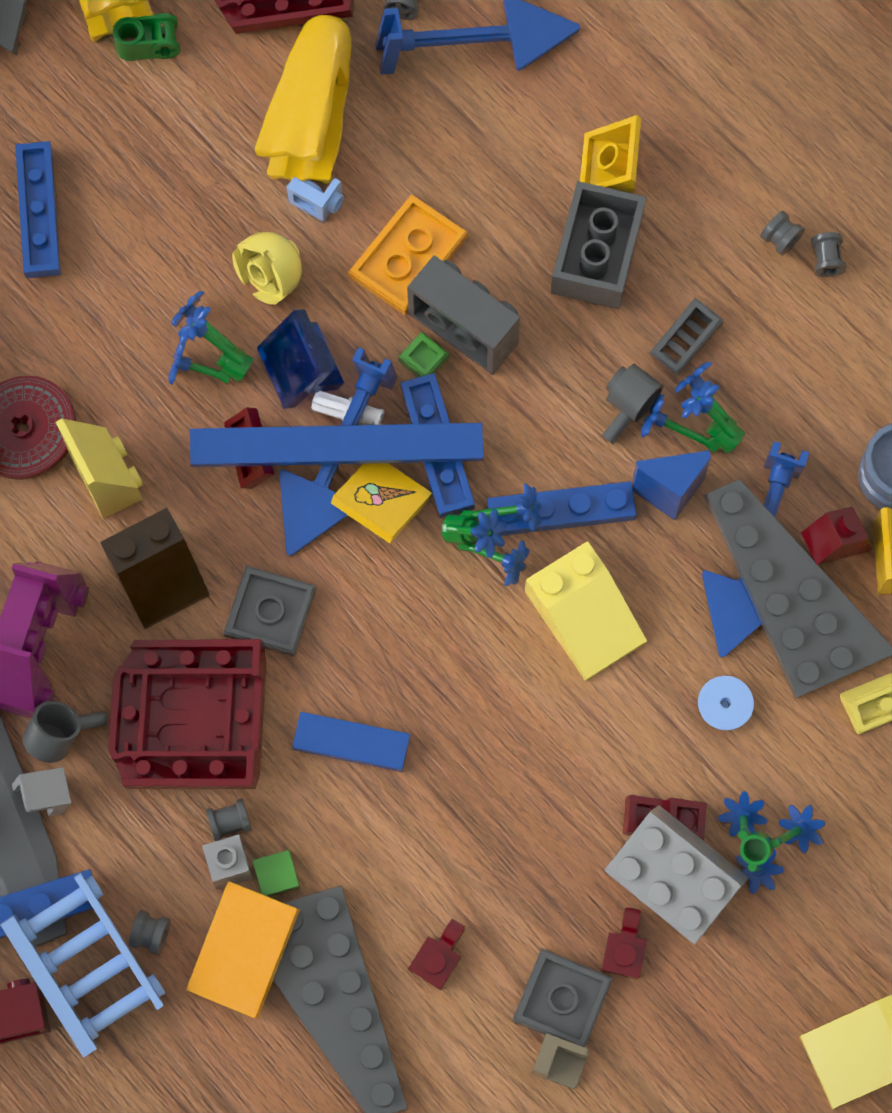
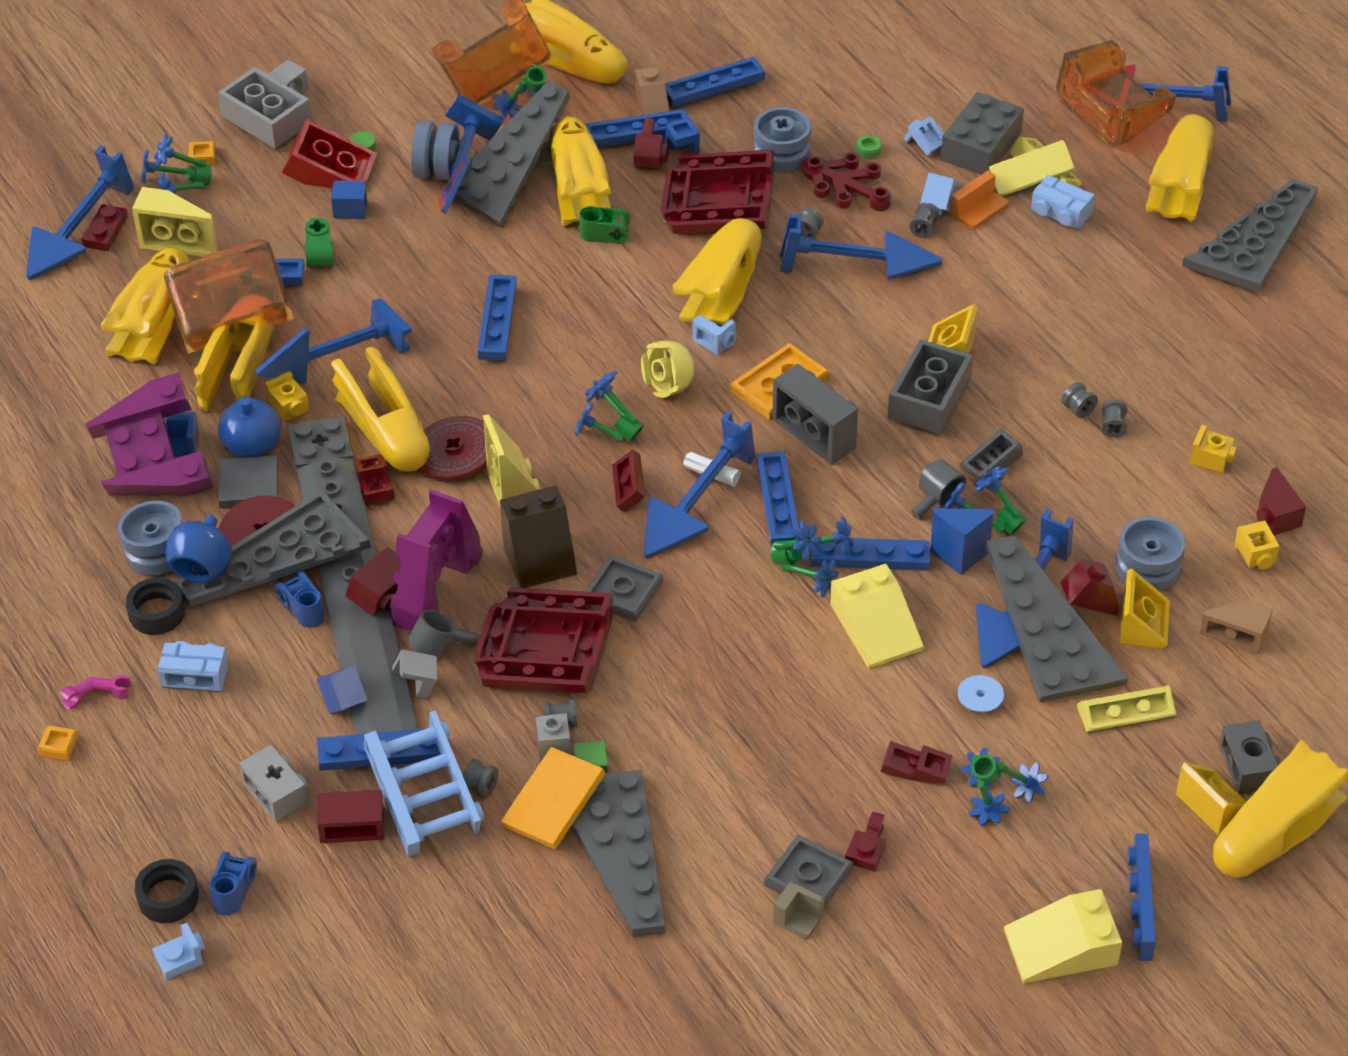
camera: 10 degrees right, 25 degrees down
(299, 360) = (679, 428): clear blue bracket -> none
(336, 444) = (698, 479): blue tile -> none
(351, 741) = (670, 679): blue tile -> none
(381, 499) = (726, 523): yellow tile -> none
(423, 356) = (778, 442): bright green tile -> none
(436, 959) = (711, 832): dark red plate -> none
(676, 874) = (918, 790): light grey brick -> none

